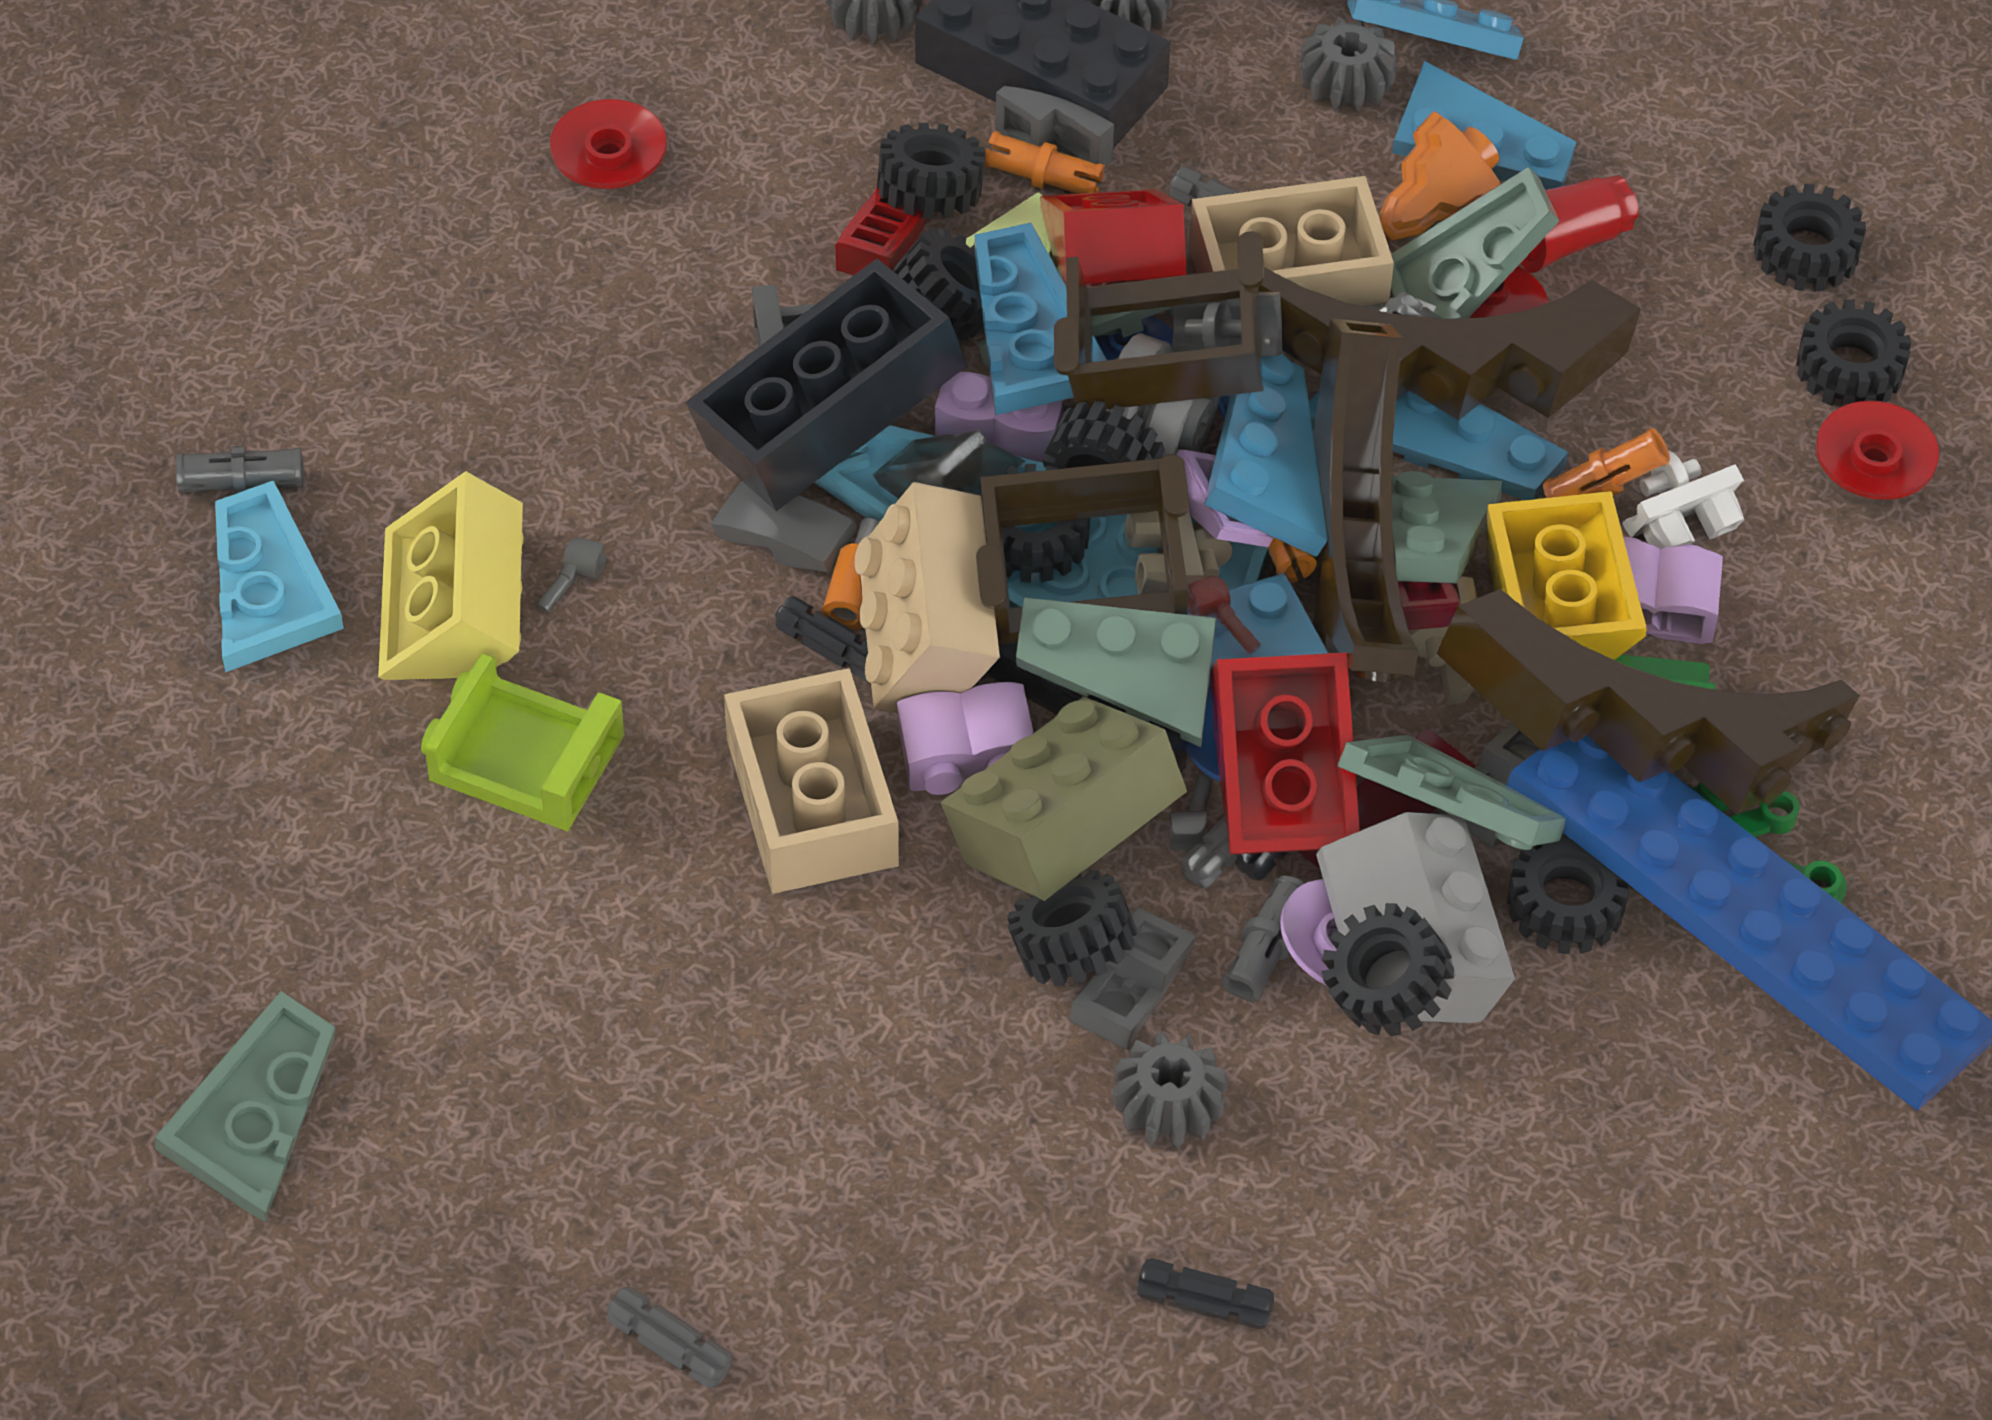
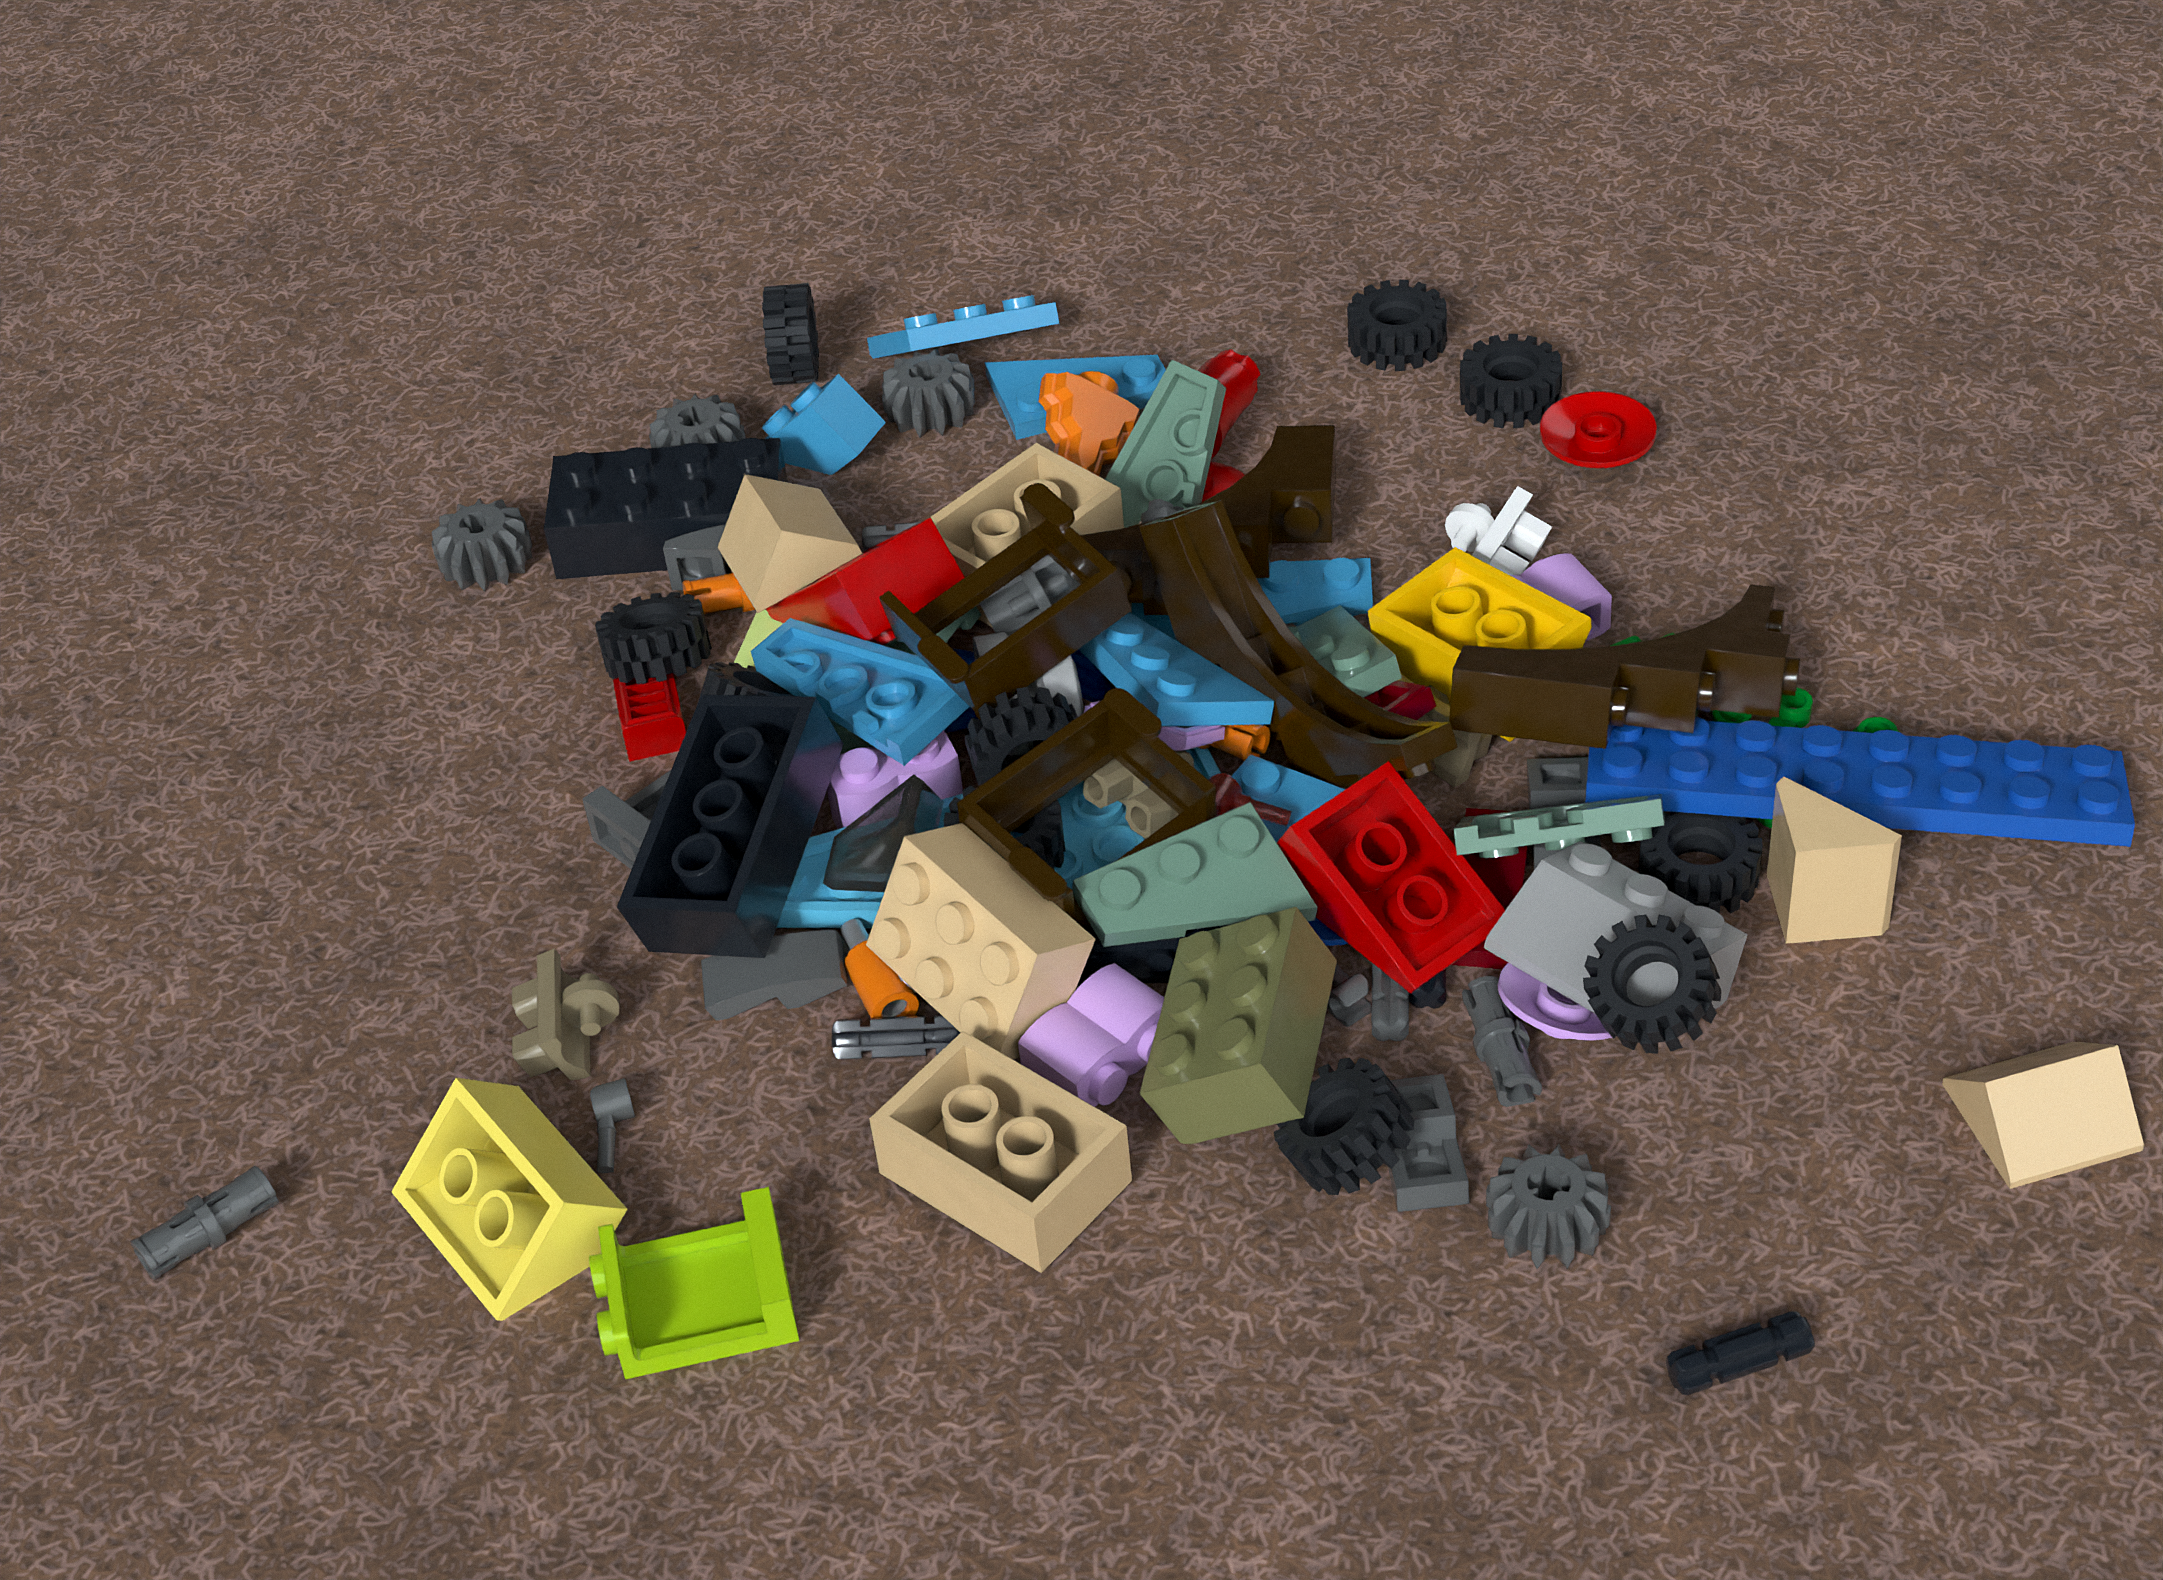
camera: 30 degrees left, 10 degrees down
(267, 580) = (314, 1298): medium azure wing -> none
(606, 460) = (565, 1018): none -> dark tan hips
(608, 143) = (338, 770): red dish -> none
(1085, 145) = (782, 539): none -> tan slope
(1227, 48) = (825, 427): none -> dark azure slope
(1611, 468) = (1426, 541): orange pin -> none
(1627, 1274) = (2050, 1110): none -> tan slope
(1635, 967) = (1829, 868): none -> tan slope

